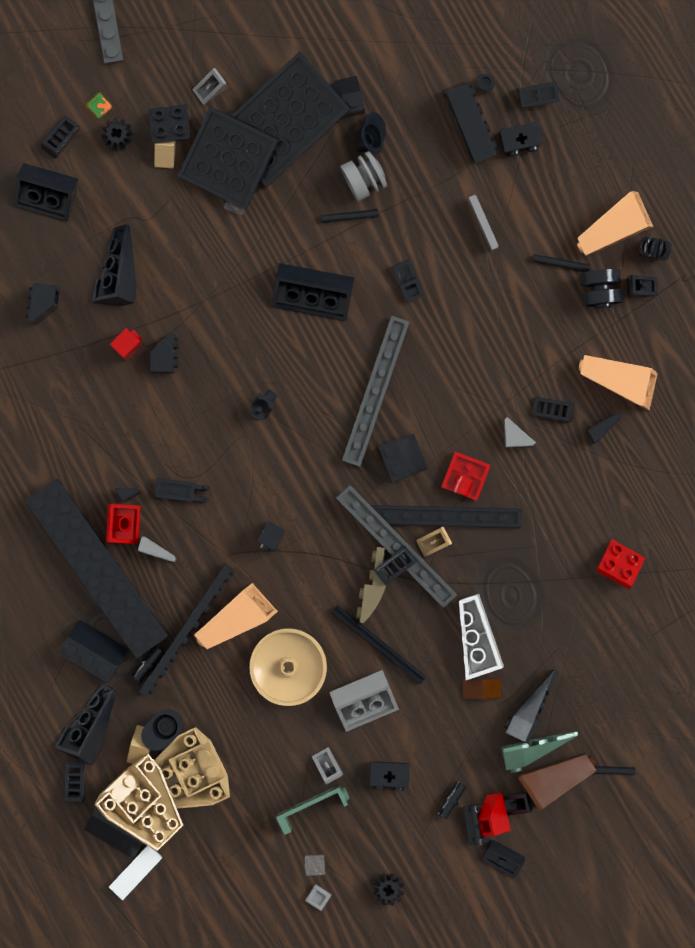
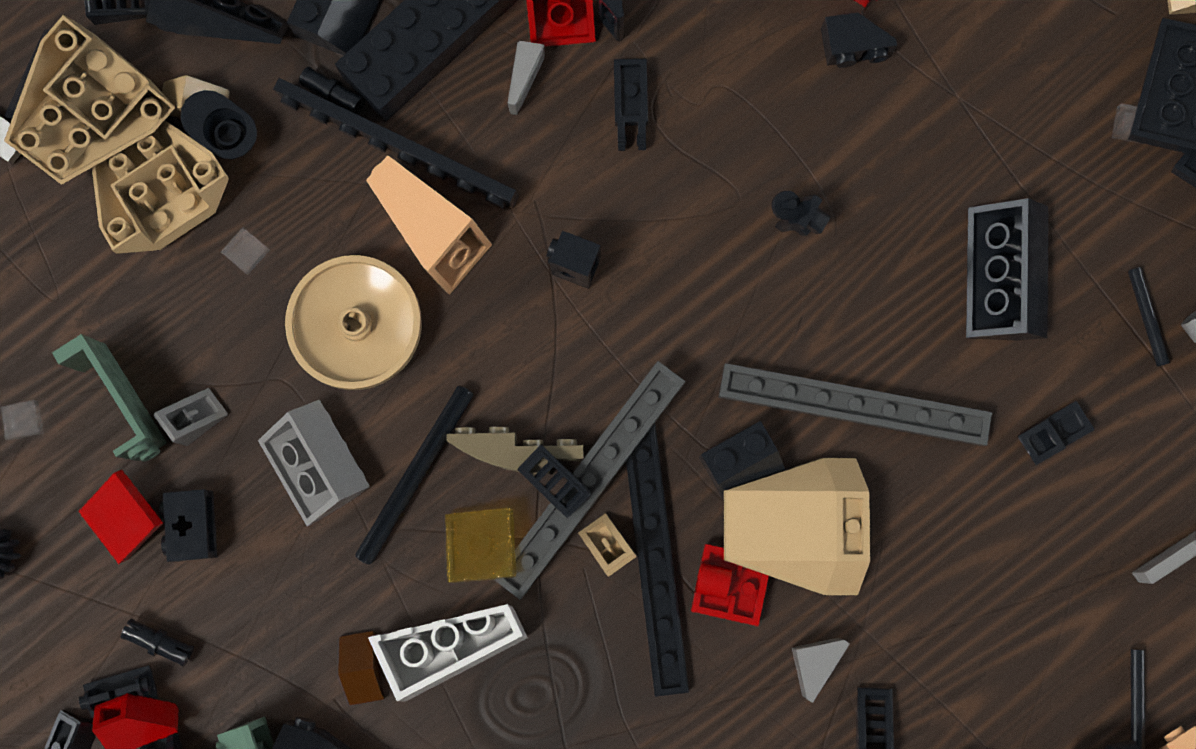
camera: 85 degrees right, 5 degrees down
(235, 726) = (245, 251): none -> clear tile
(379, 812) = (120, 516): none -> red tile
(424, 612) = (480, 545): none -> clear yellow tile
(439, 432) = (803, 526): none -> tan wedge

